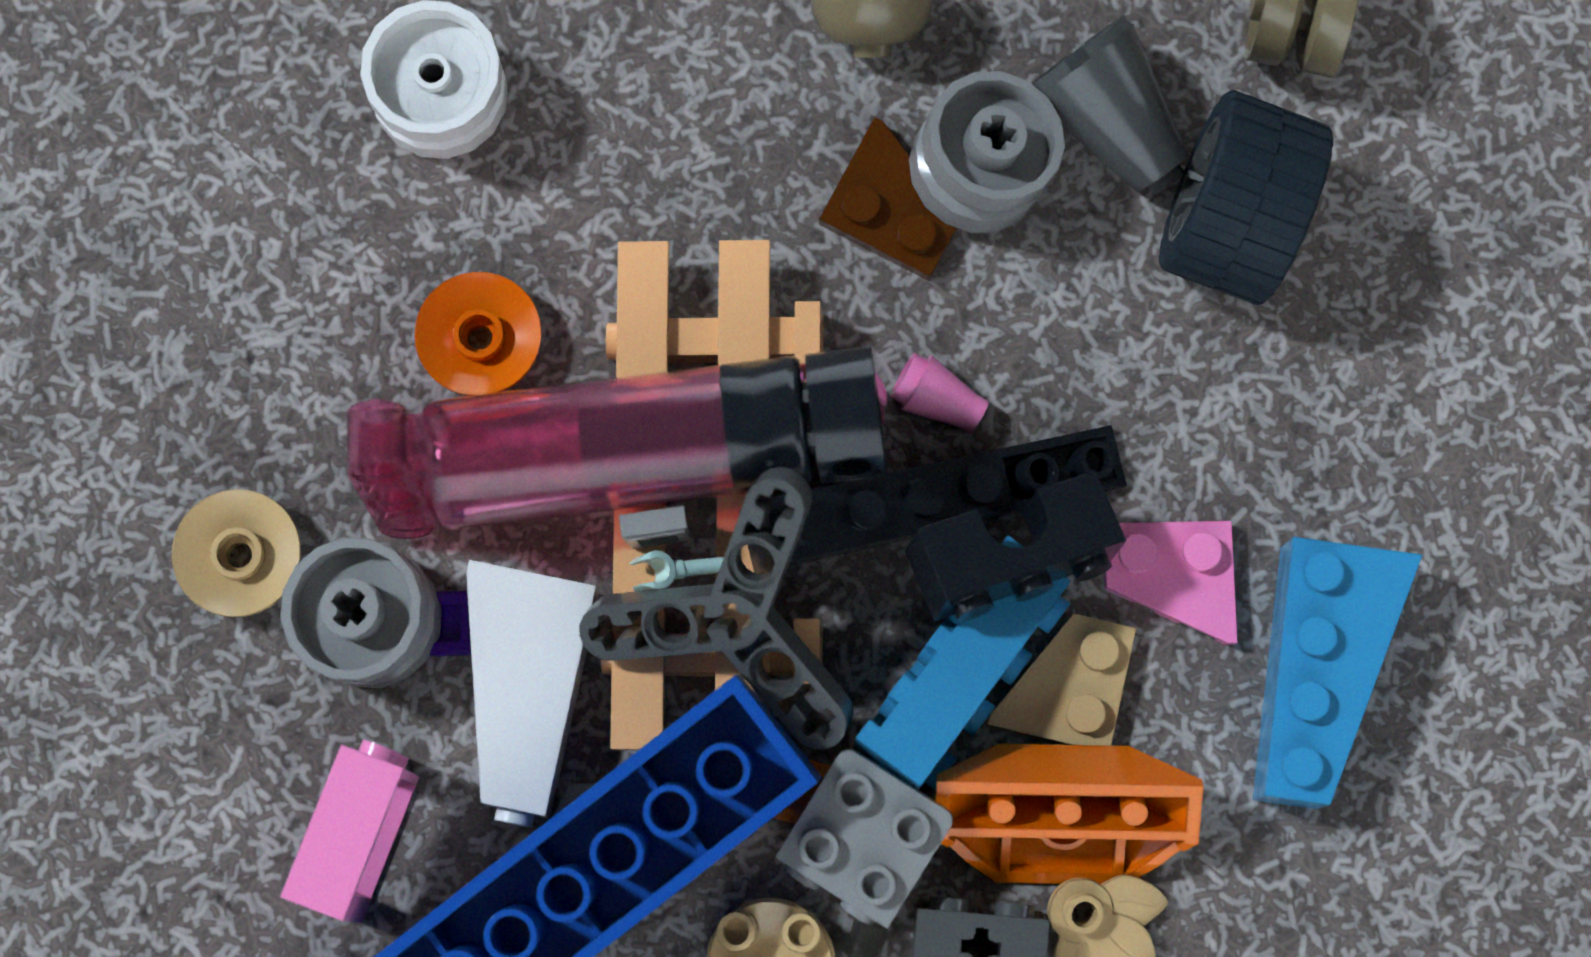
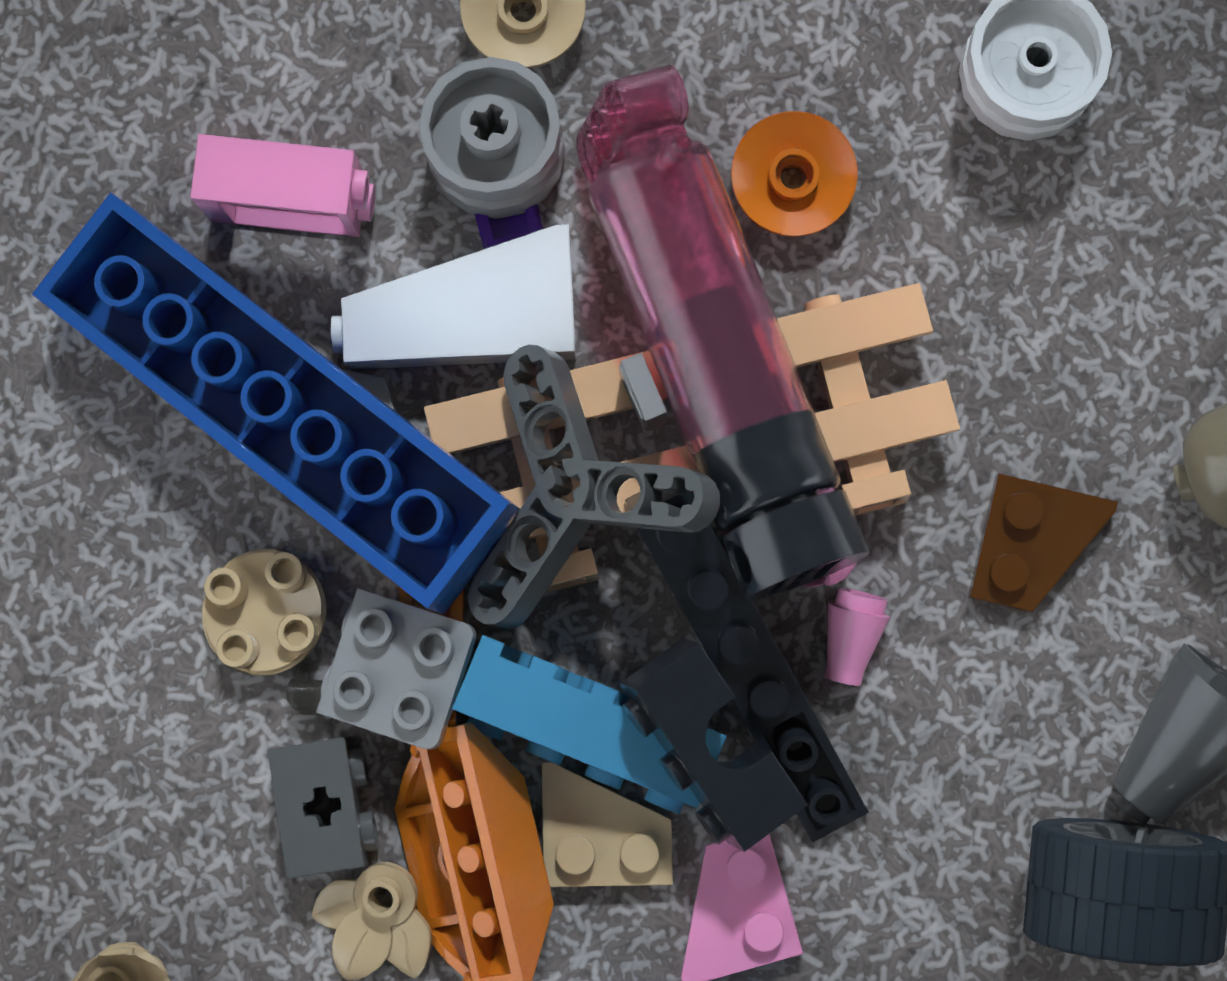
camera: 80 degrees right, 5 degrees up
(668, 570) = (606, 418): light aqua hand -> none
(986, 151) = (1109, 620): light grey wheel -> none

